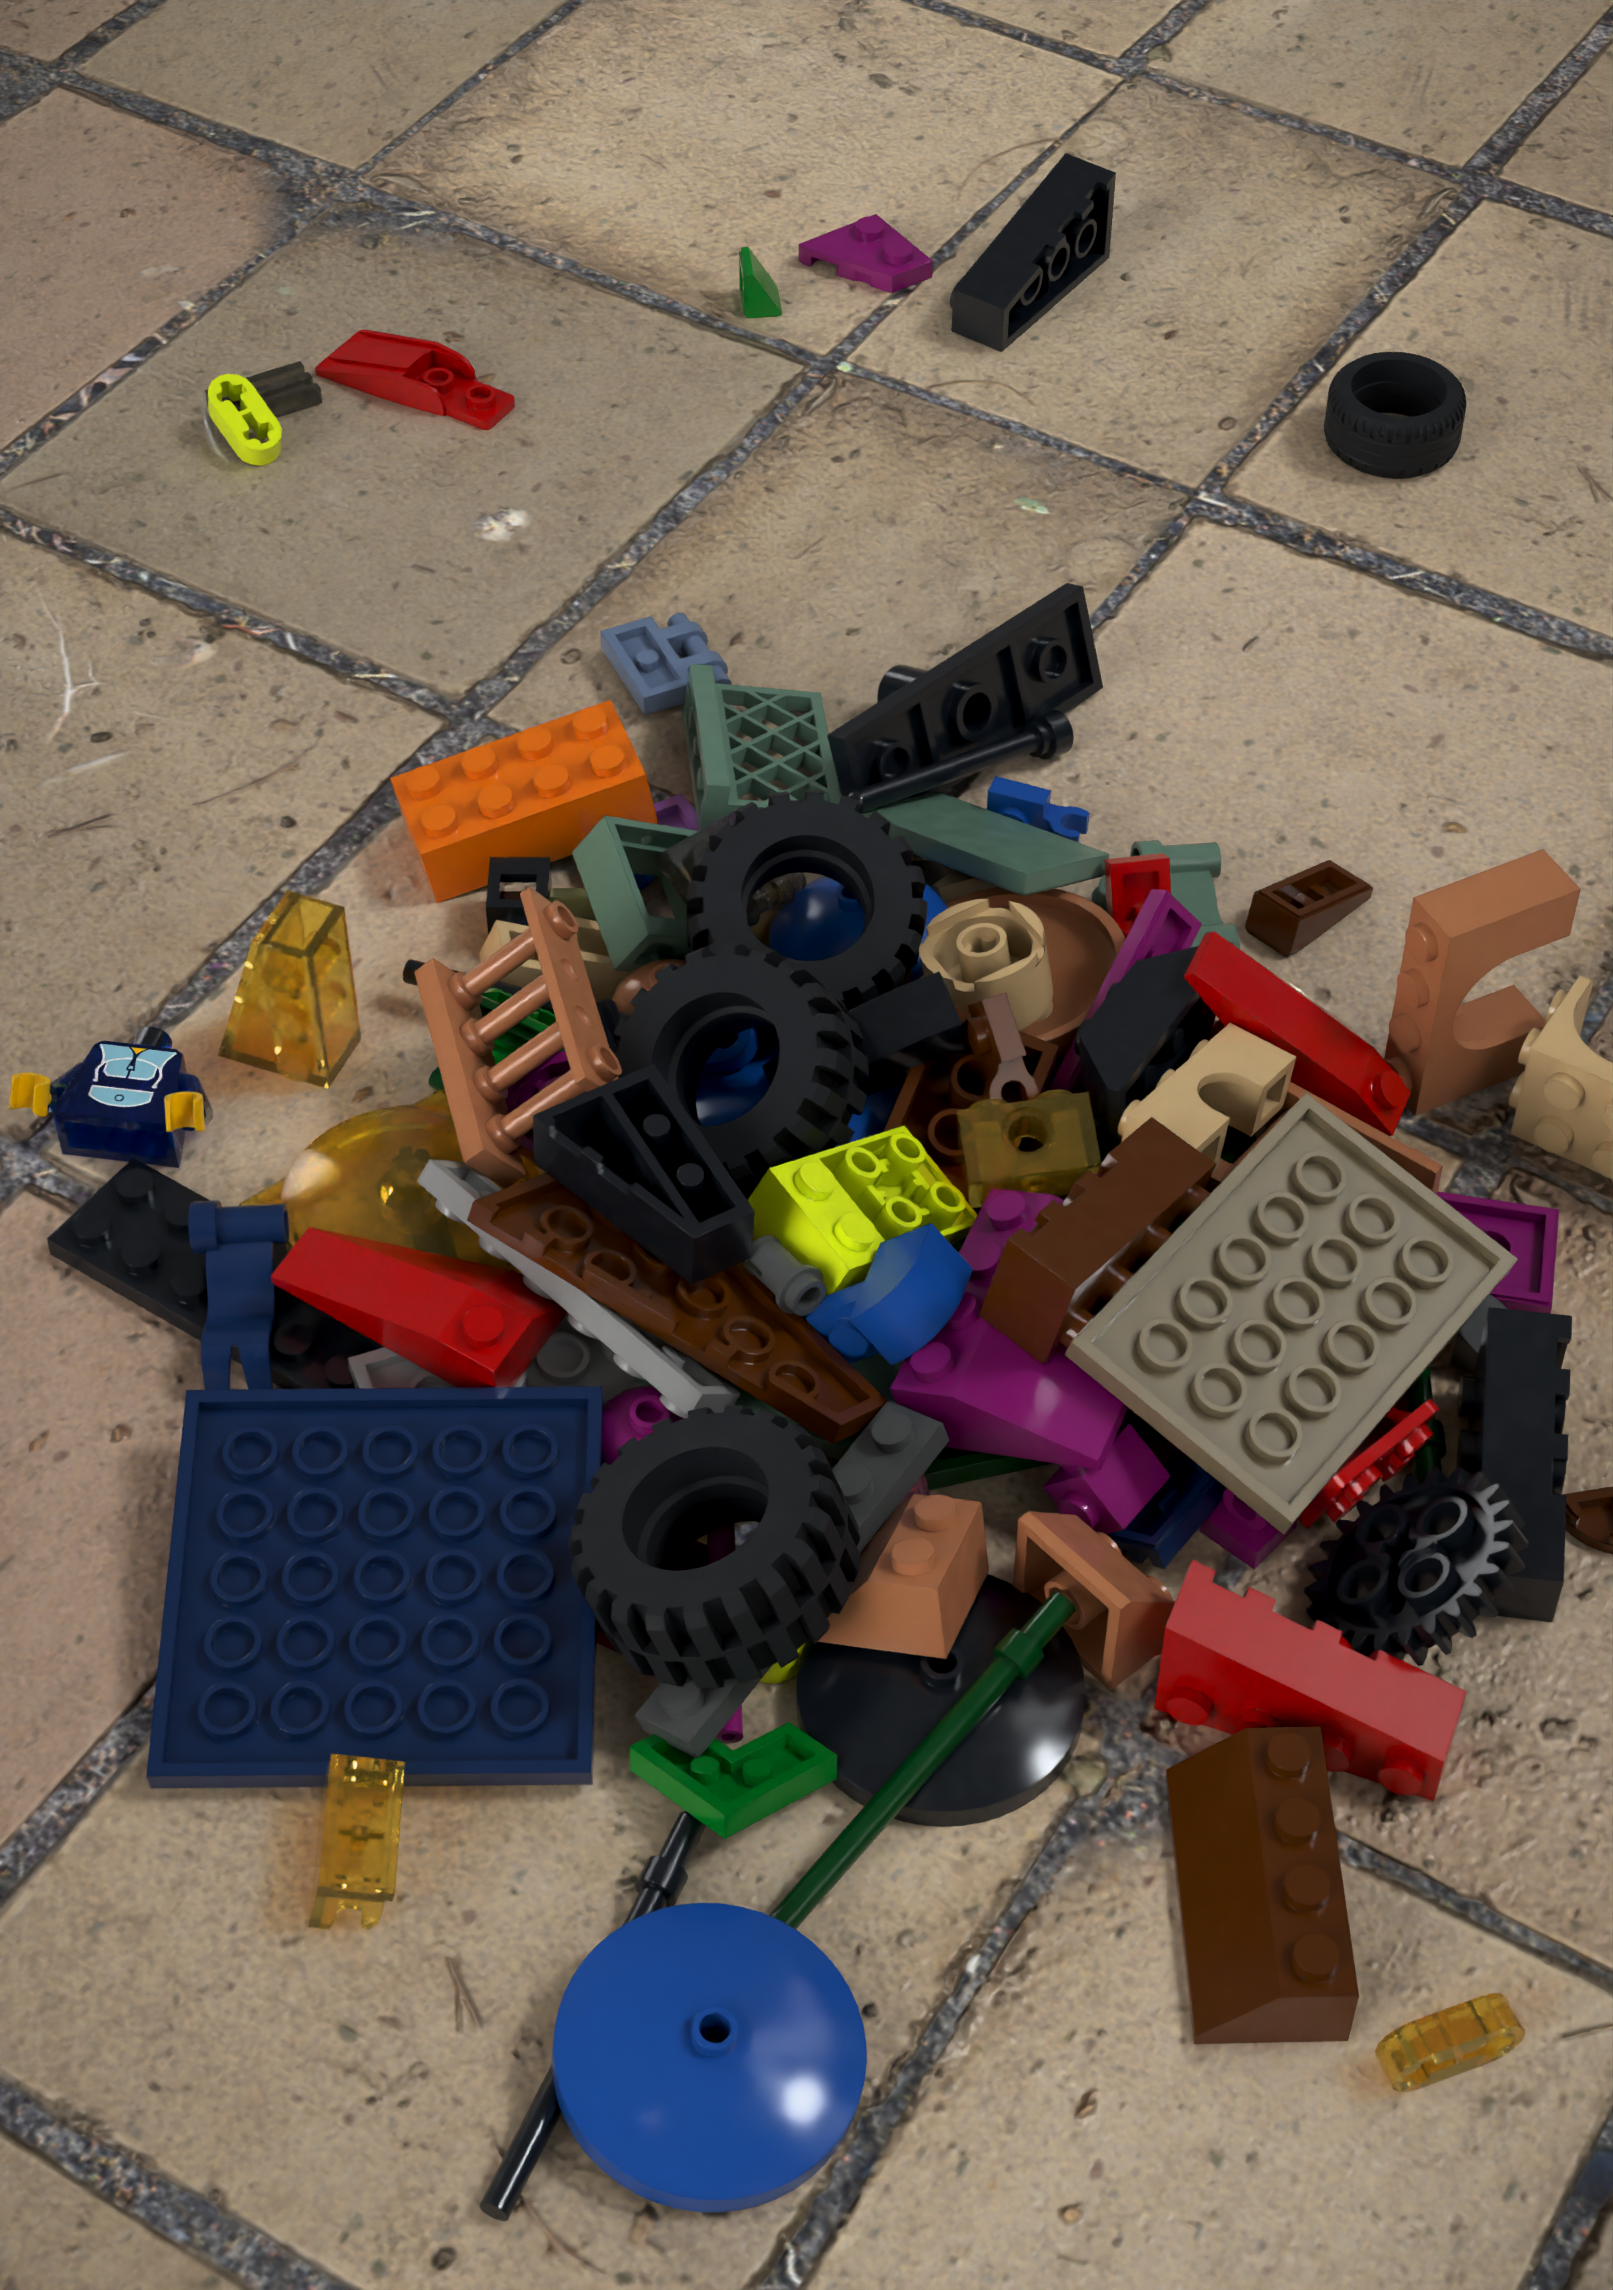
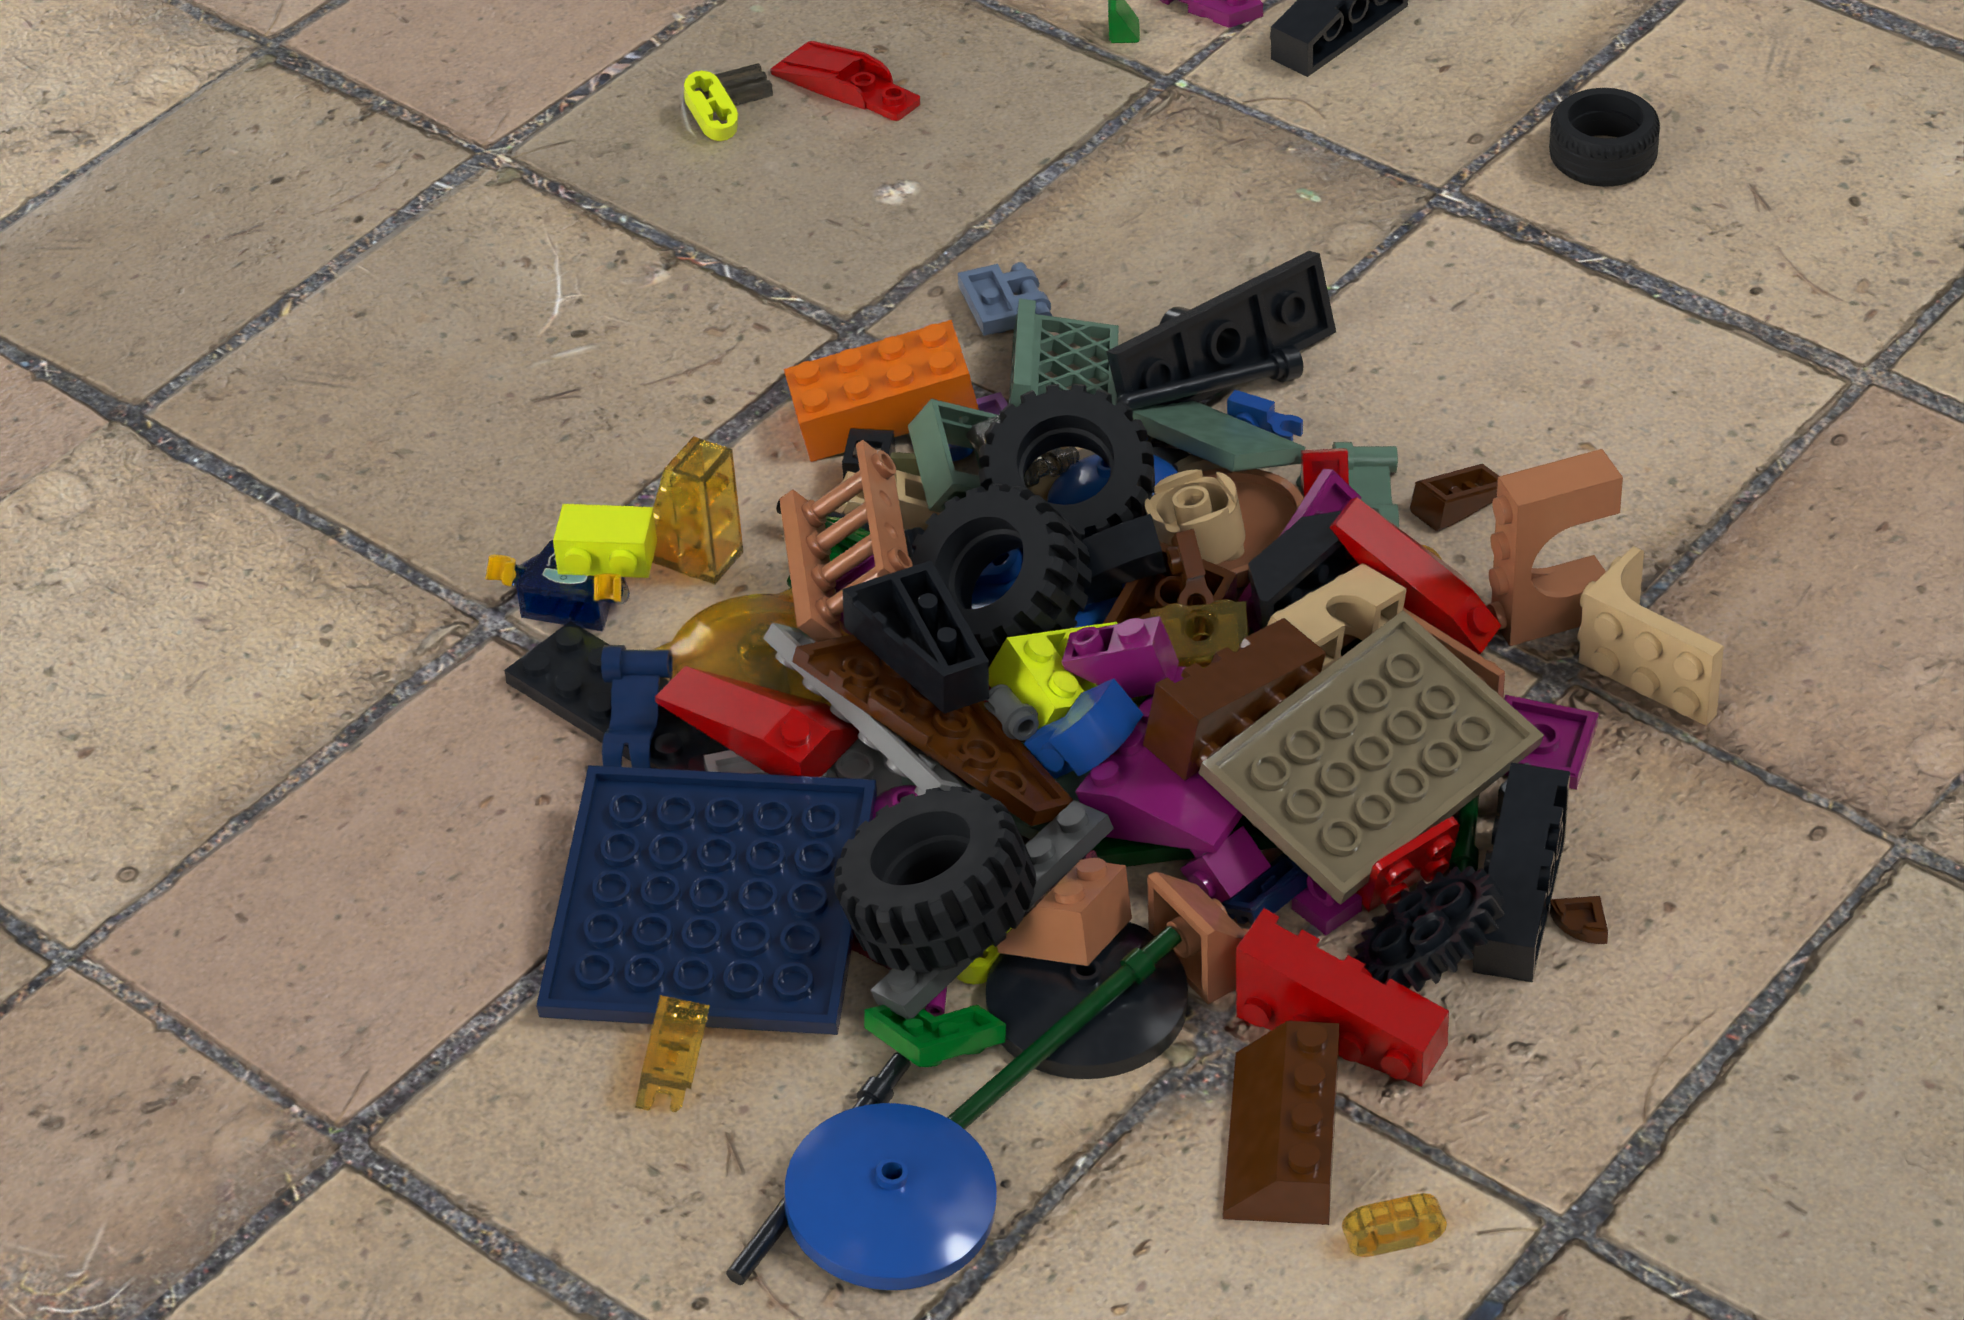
camera: 10 degrees right, 5 degrees down
(173, 1043) = (605, 540): none -> neon yellow brick
(934, 1181) = (1130, 652): none -> magenta slope

